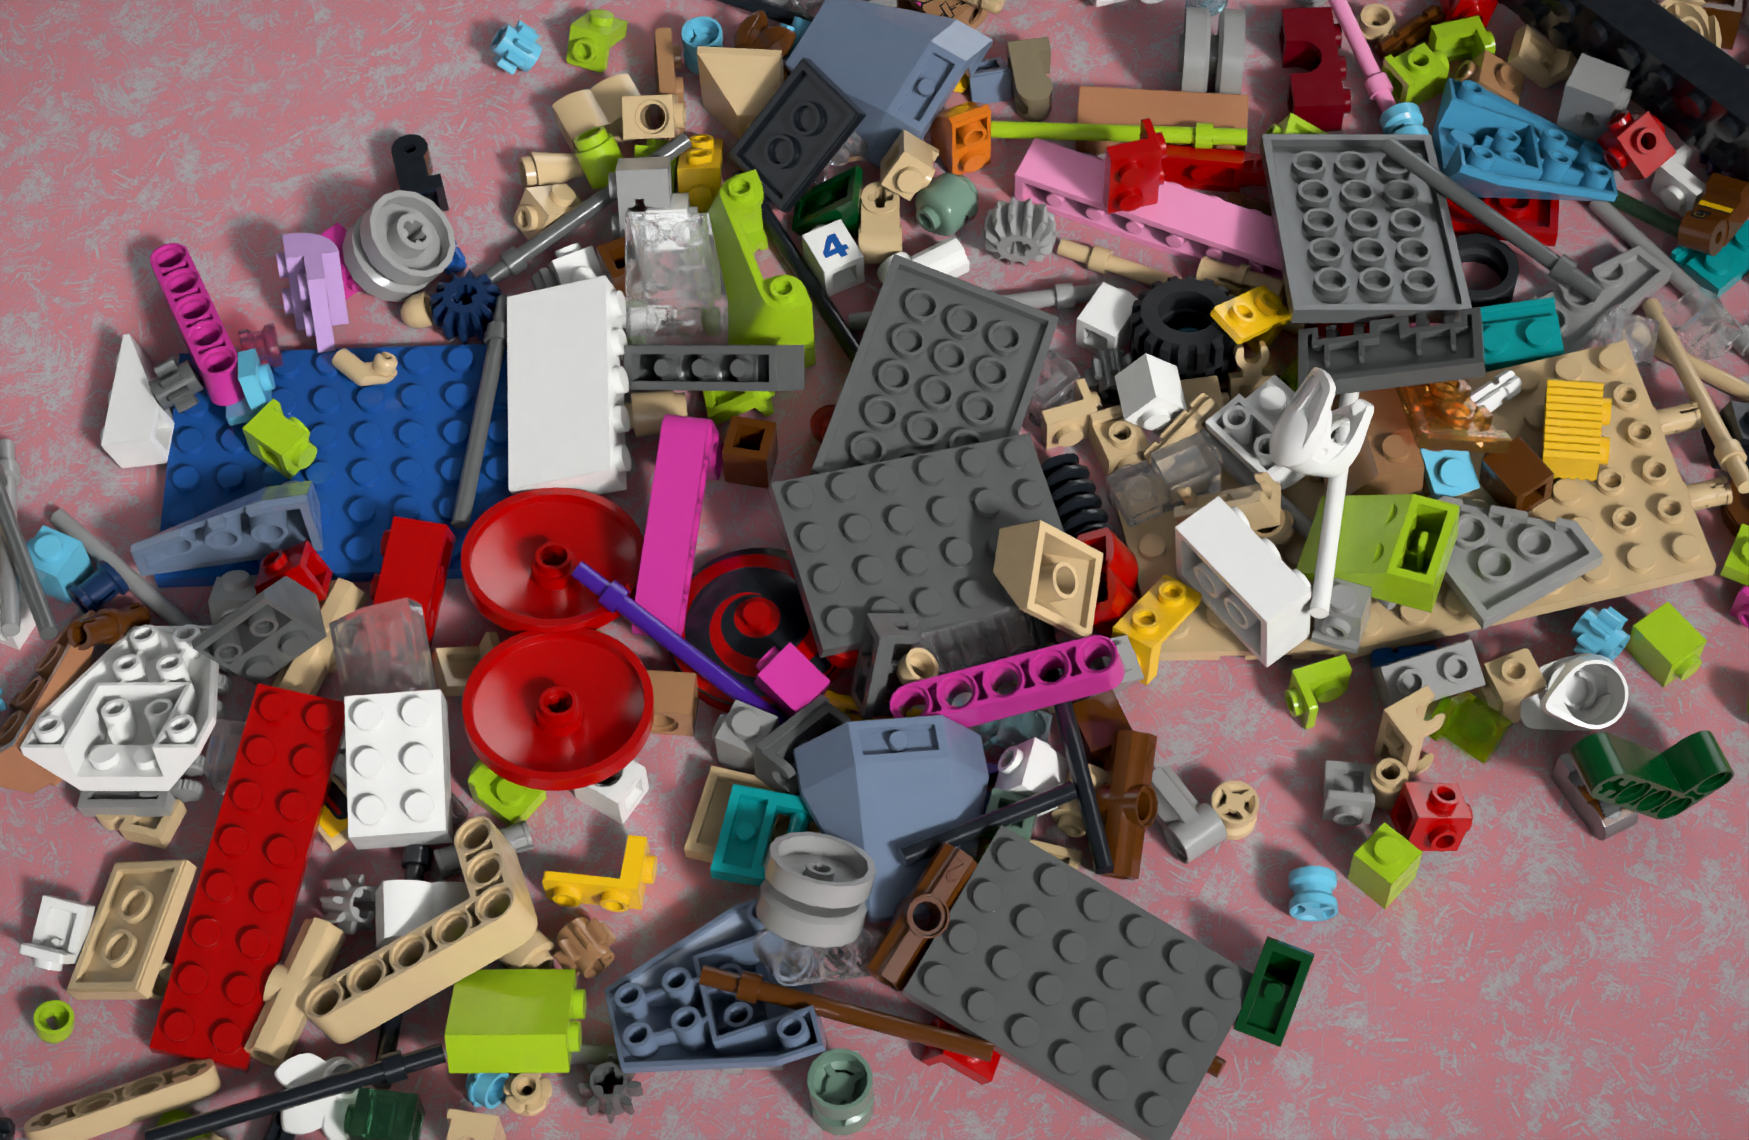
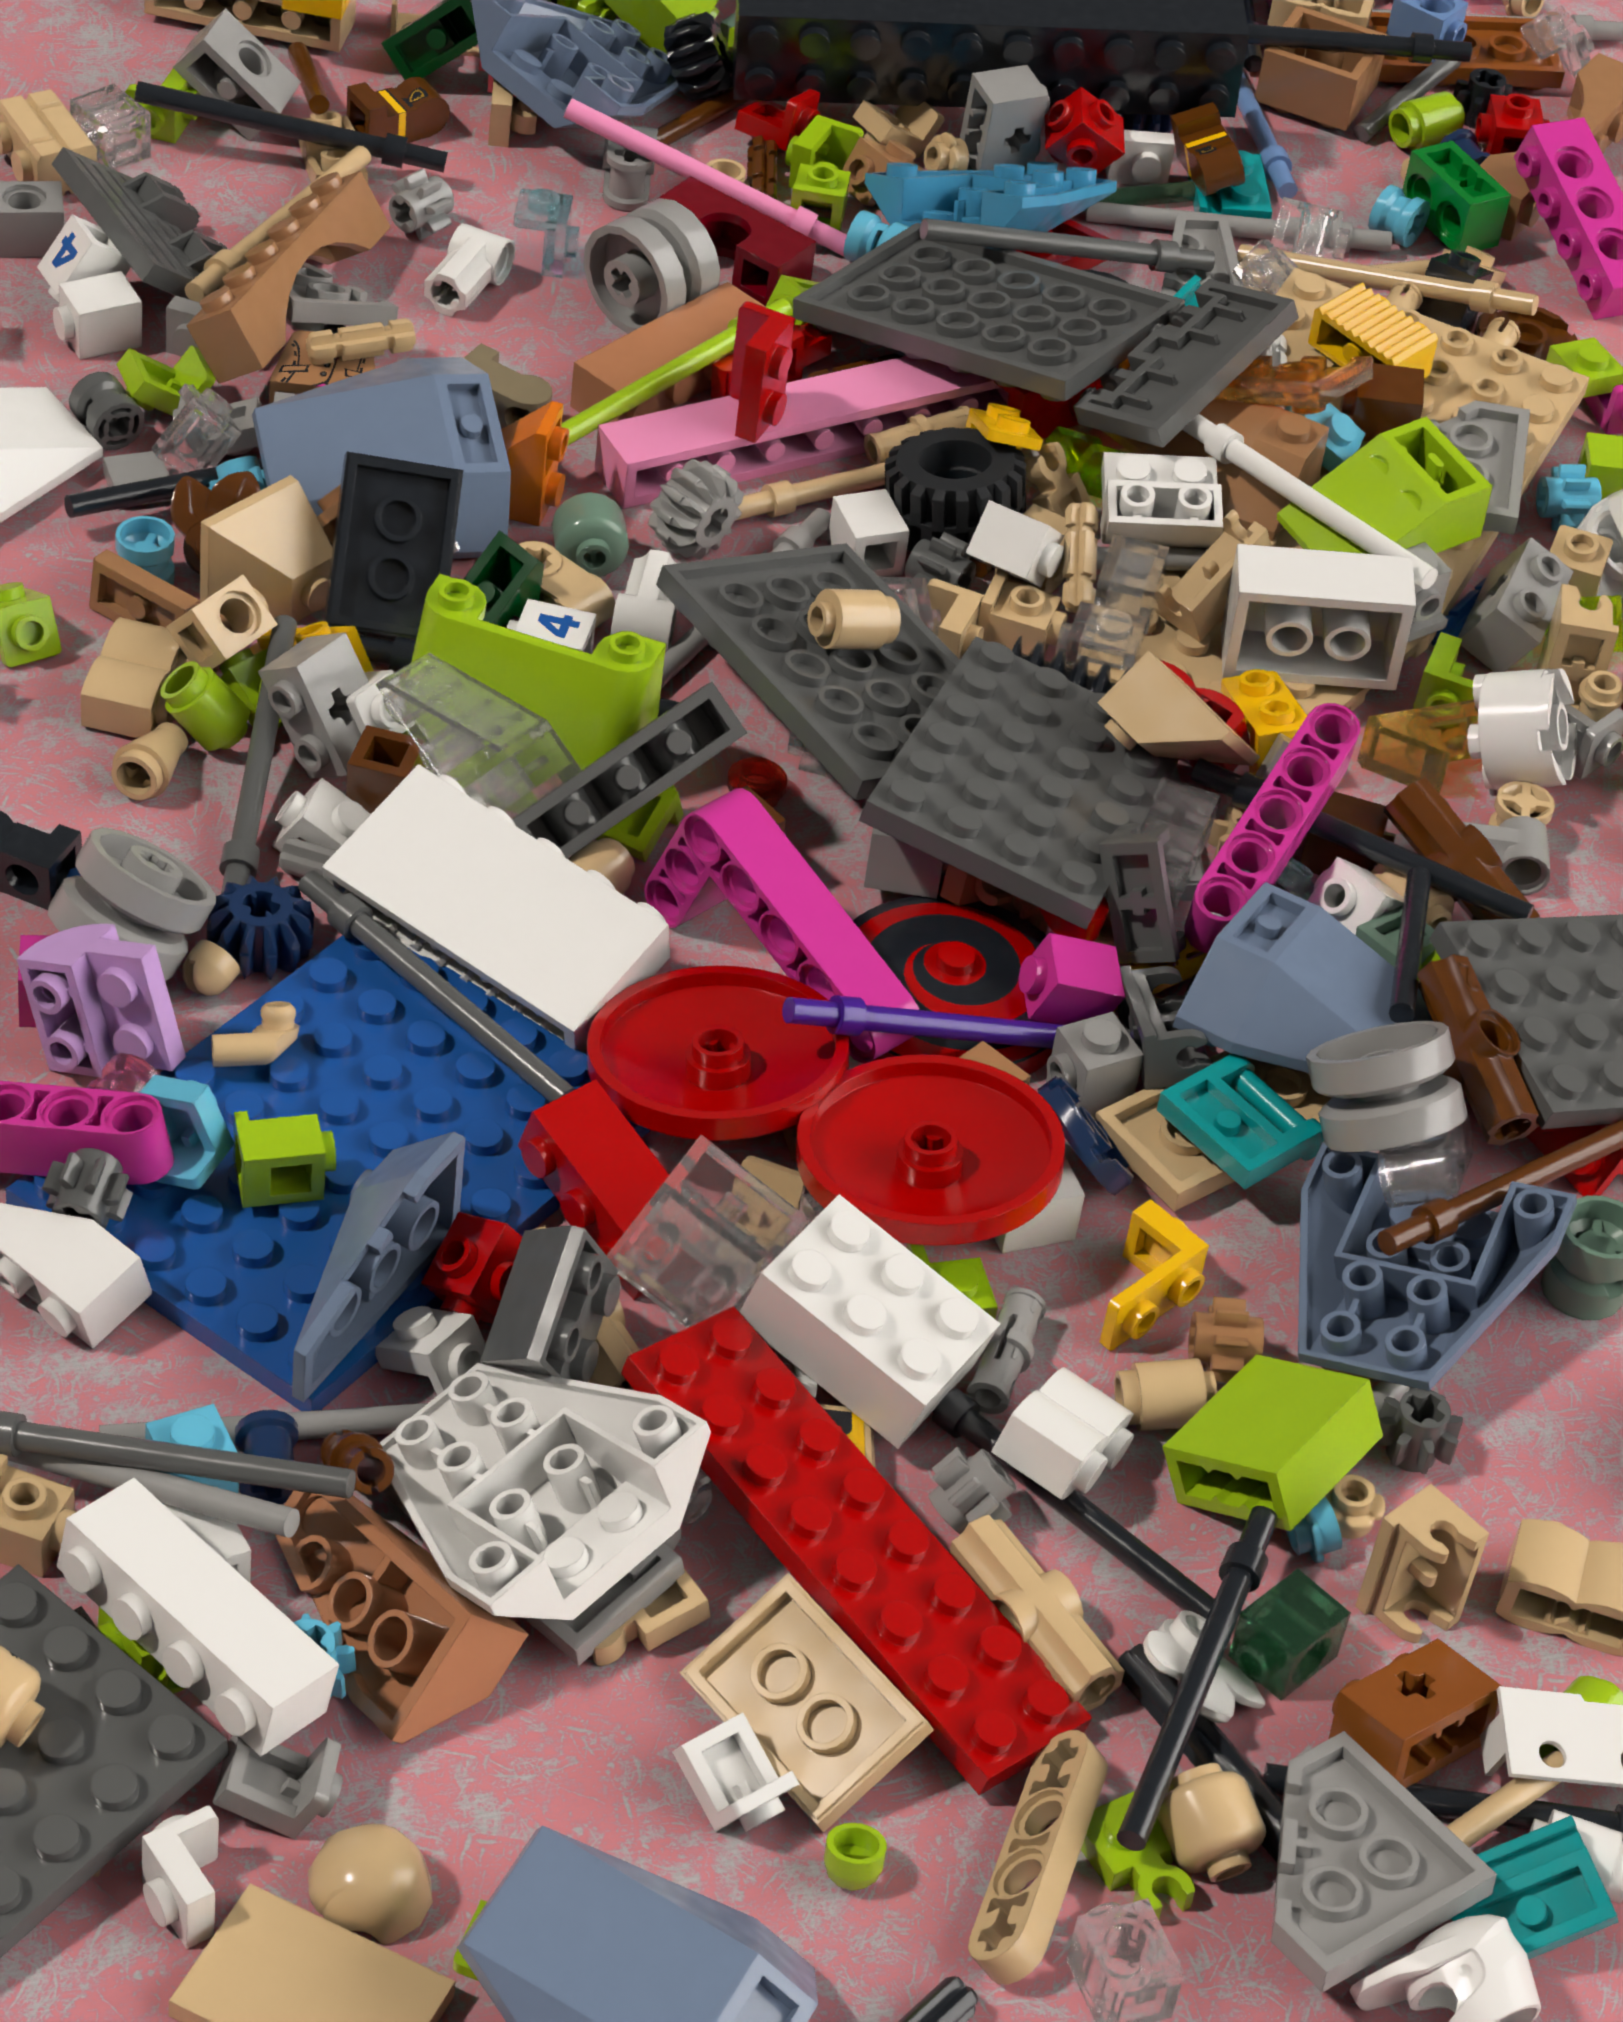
camera: 60 degrees left, 15 degrees down
(439, 952) = (1135, 1424): tan beam -> none
(542, 207) = (206, 798): tan bracket -> none
(670, 771) = (1087, 1136): none -> dark blue tile
(908, 165) = (546, 510): tan brick -> none
(916, 666) = (1182, 876): tan hinge -> none
(950, 368) = (853, 619): none -> tan brick
(1237, 707) = (1417, 742): none -> clear yellow slope
(1289, 757) = (1523, 727): none -> white brick
(1305, 428) = (1237, 433): white helmet -> none
(1543, 99) = (946, 153): none -> tan plate

